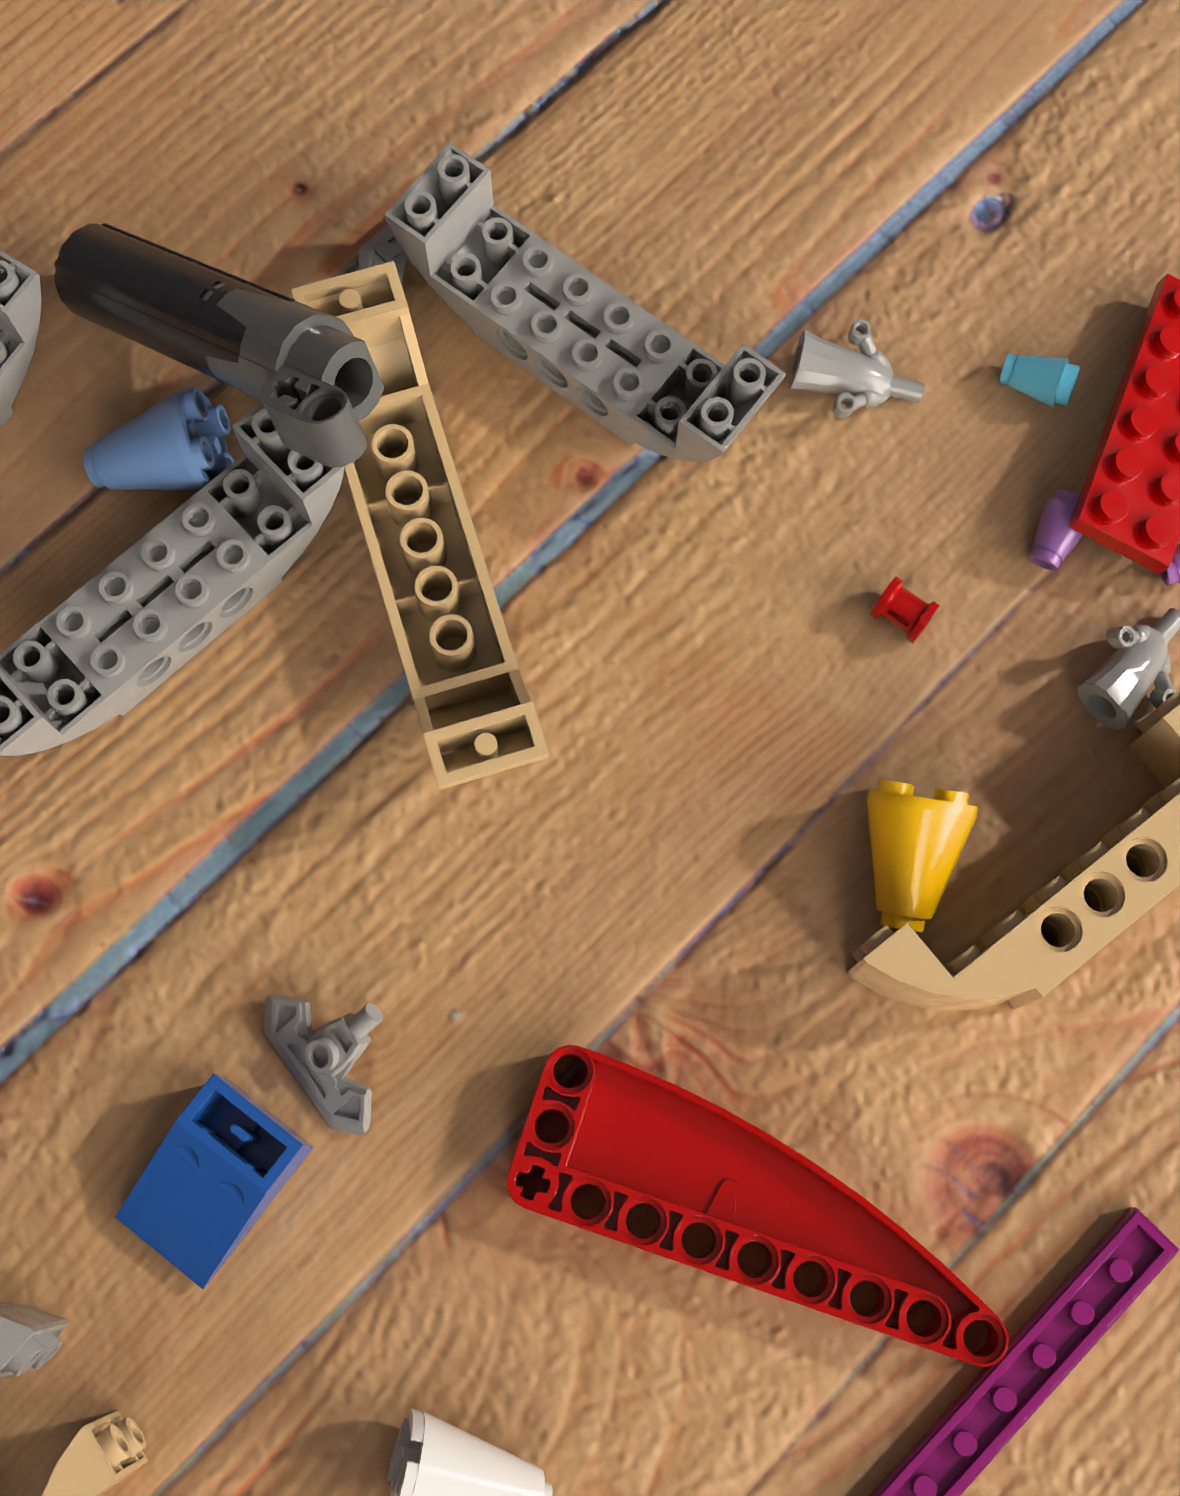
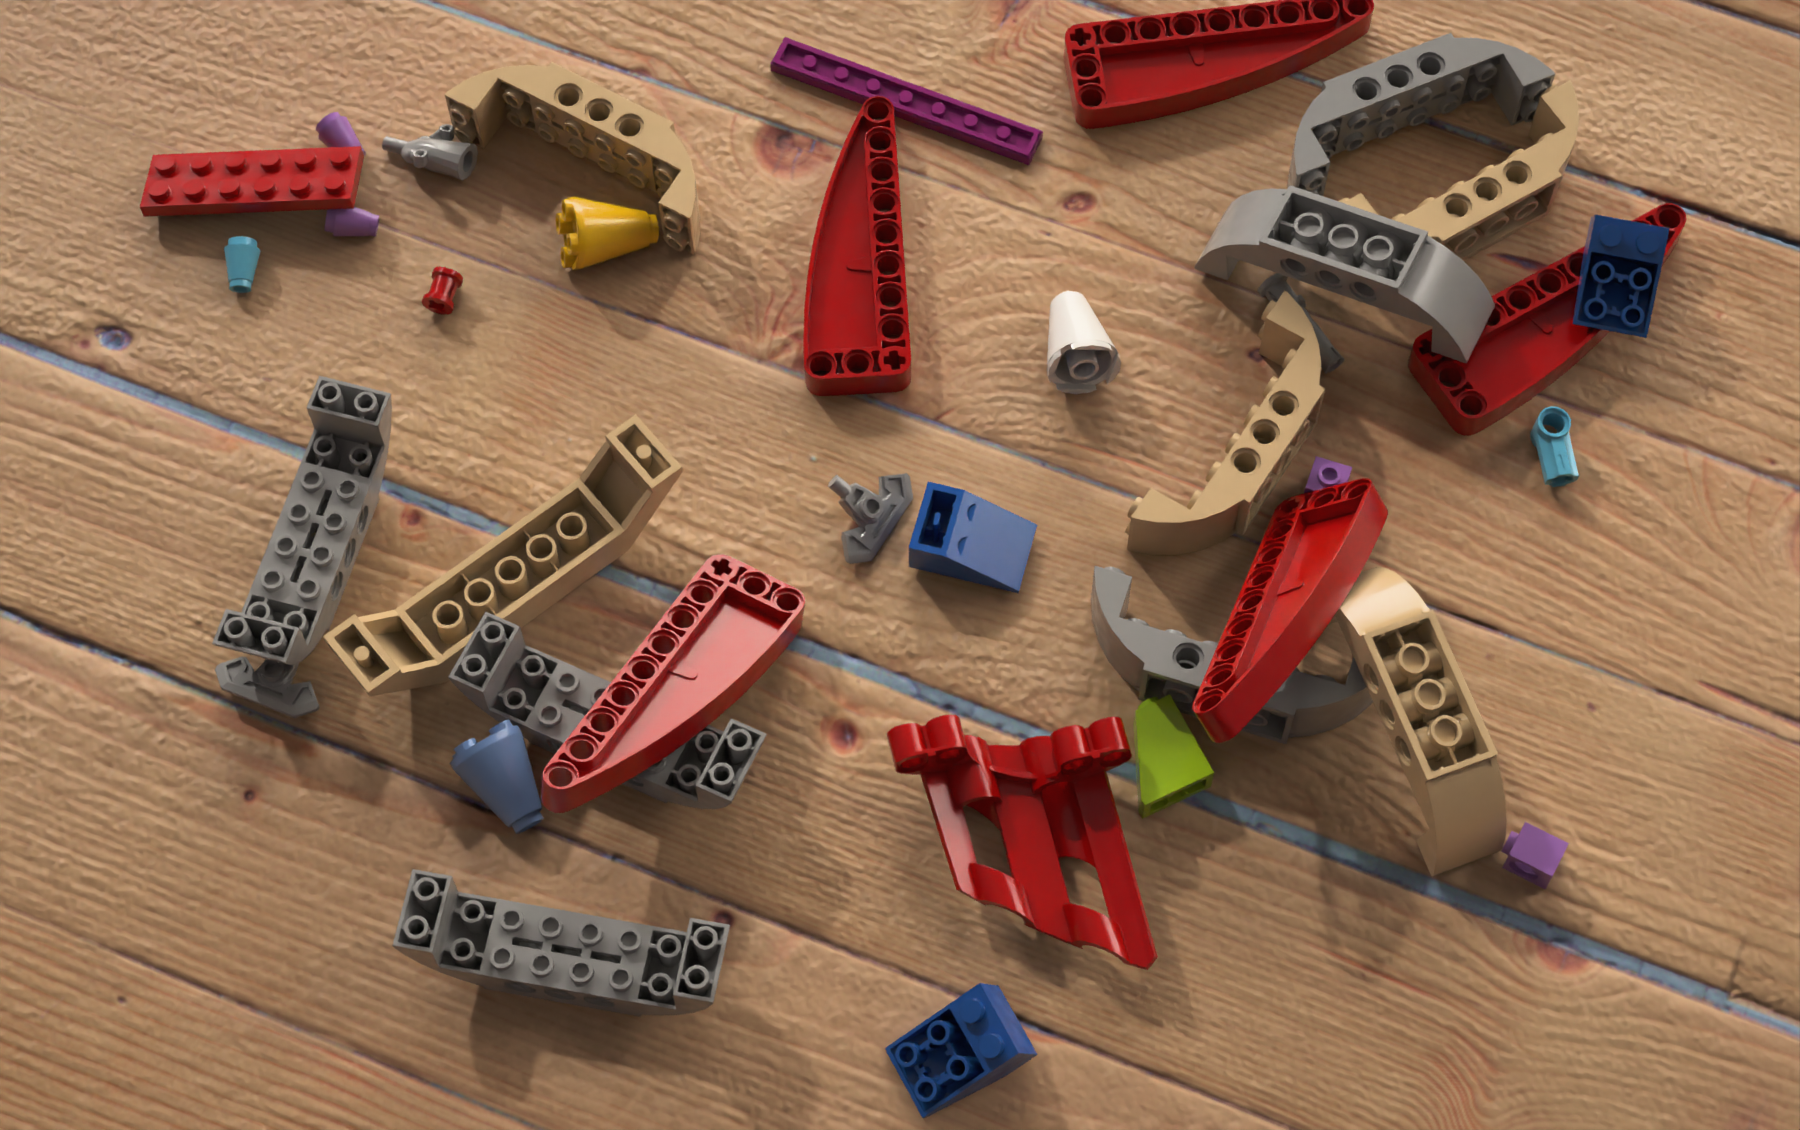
camera: 110 degrees left, 10 degrees down
(162, 735) = (679, 680): none -> red beam
(285, 353) = (416, 721): piece -> none
(852, 376) = (281, 387): light grey piece -> none

